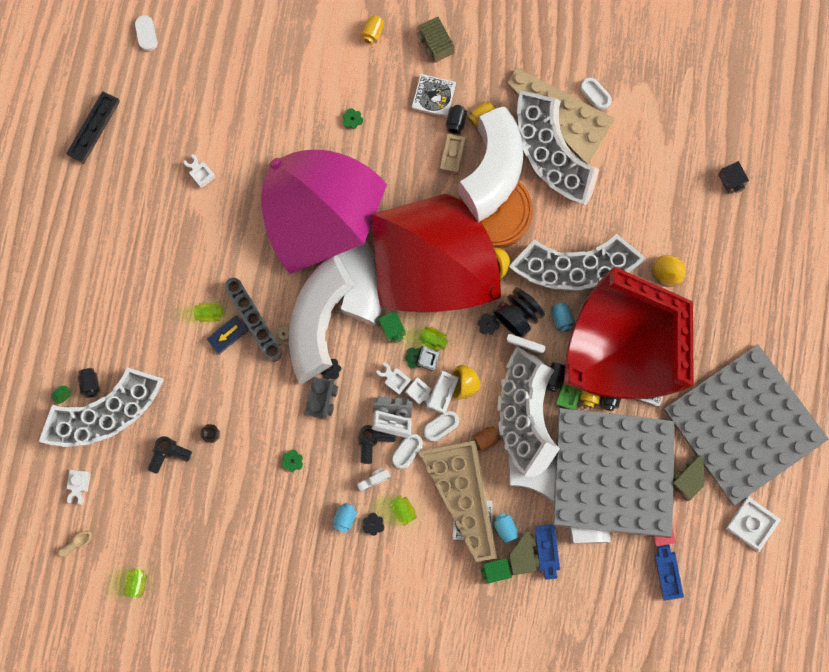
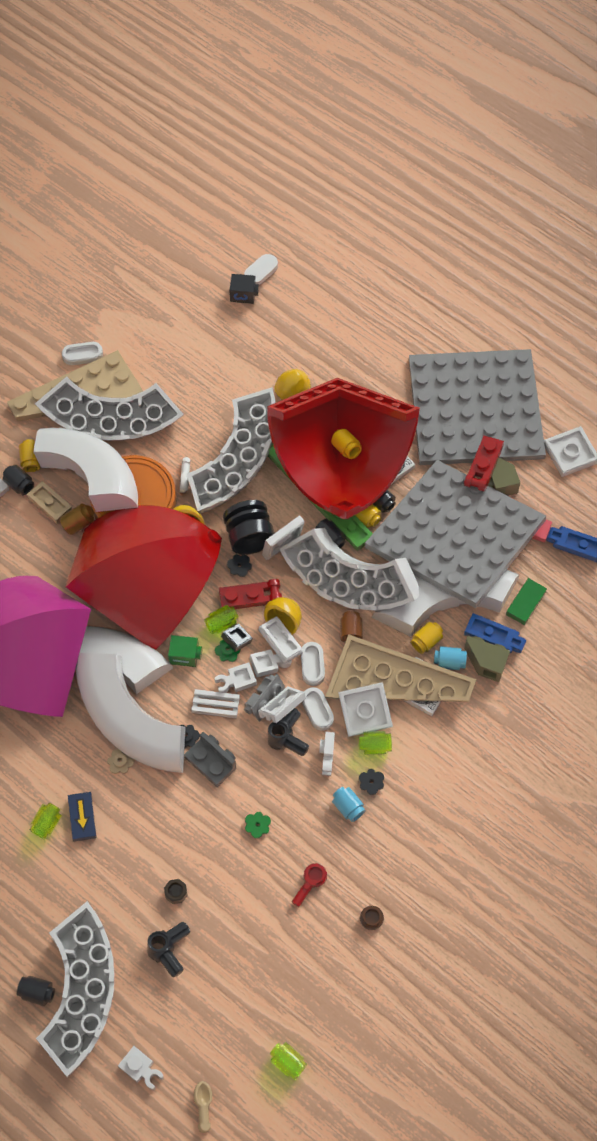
camera: 65 degrees left, 15 degrees down
(61, 394) = (28, 1028): green tile -> none
(249, 311) = (75, 773): dark grey beam -> none
(270, 583) = (371, 917): none -> reddish brown plate
(277, 524) = (314, 876): none -> red plate
(360, 360) = (219, 696): none -> white tile
(424, 488) = (365, 709): none -> white tile
(448, 182) = (77, 518): none -> pearl gold brick
(468, 346) = (249, 594): none -> red plate
(496, 571) = (487, 690): green brick -> none
(513, 500) = (427, 637): none -> yellow brick
(540, 236) = (184, 481): none -> white piece
(562, 317) = (277, 496): medium azure brick -> none
(592, 560) = (526, 601): none -> green tile
(639, 343) = (346, 443): none -> yellow brick
(689, 461) = (484, 463): none -> red plate
(763, 180) = (262, 268): none -> white tile

